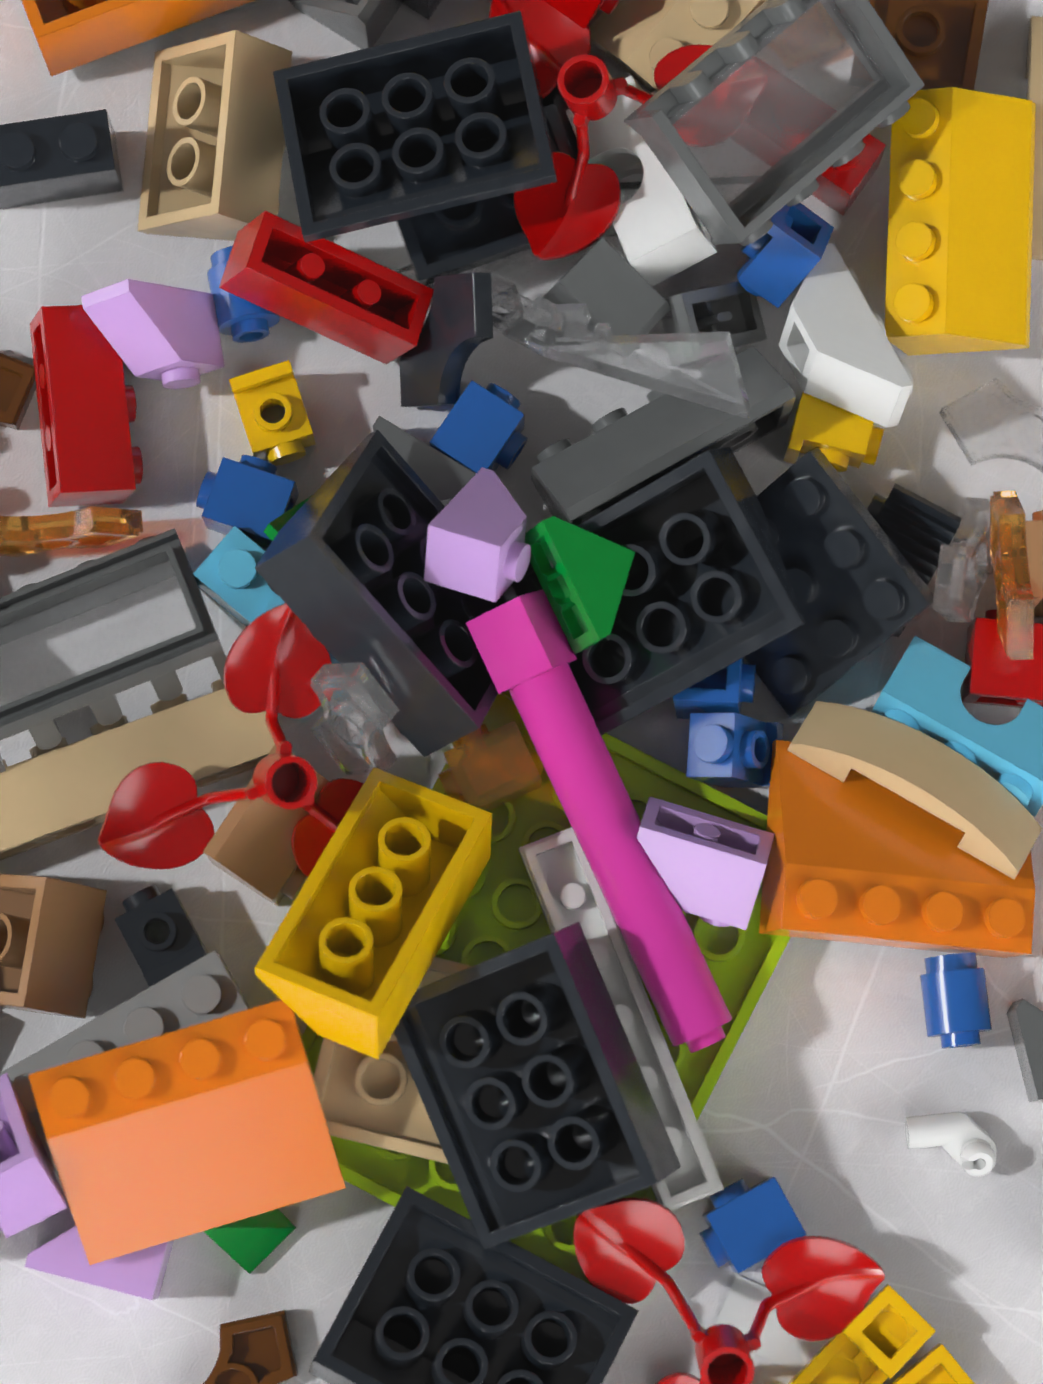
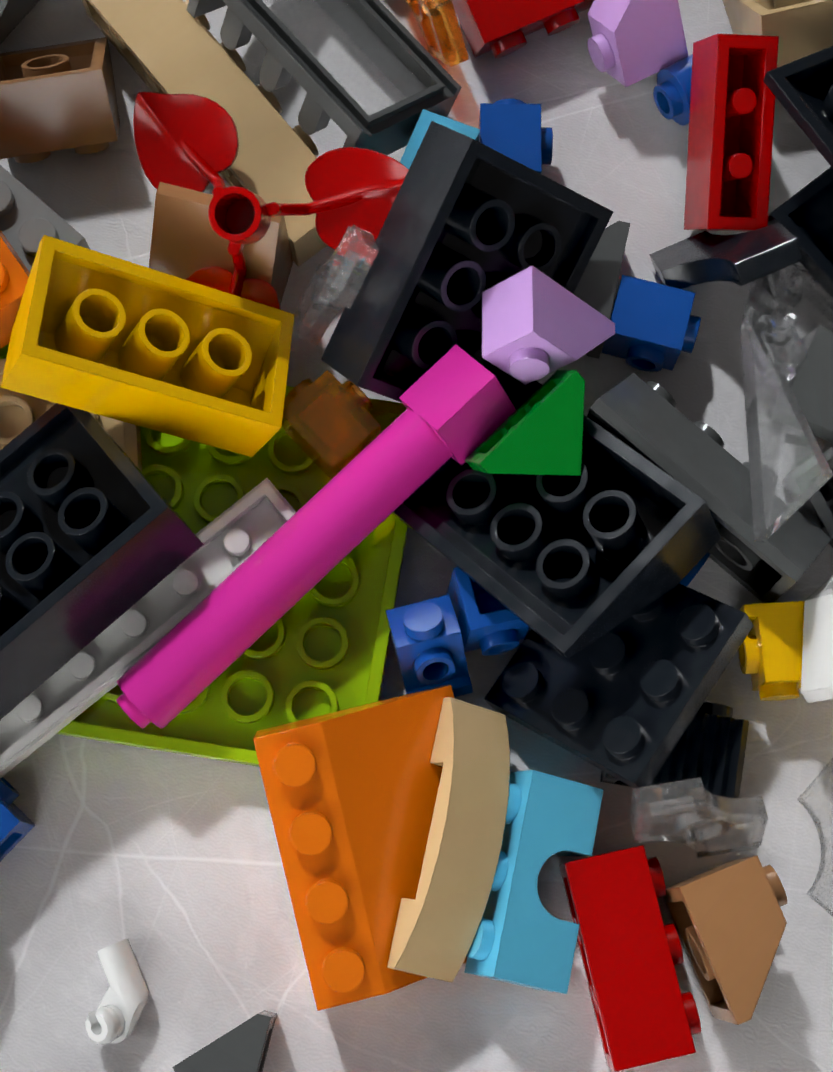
camera: 75 degrees right, 5 degrees down
(182, 944) = (106, 215): black brick -> none
(264, 389) = (622, 145): yellow brick -> none
(706, 861) = (305, 649): lavender slope -> none
(955, 999) = (254, 951): blue brick -> none
(1011, 575) = (696, 863): clear orange tile -> none

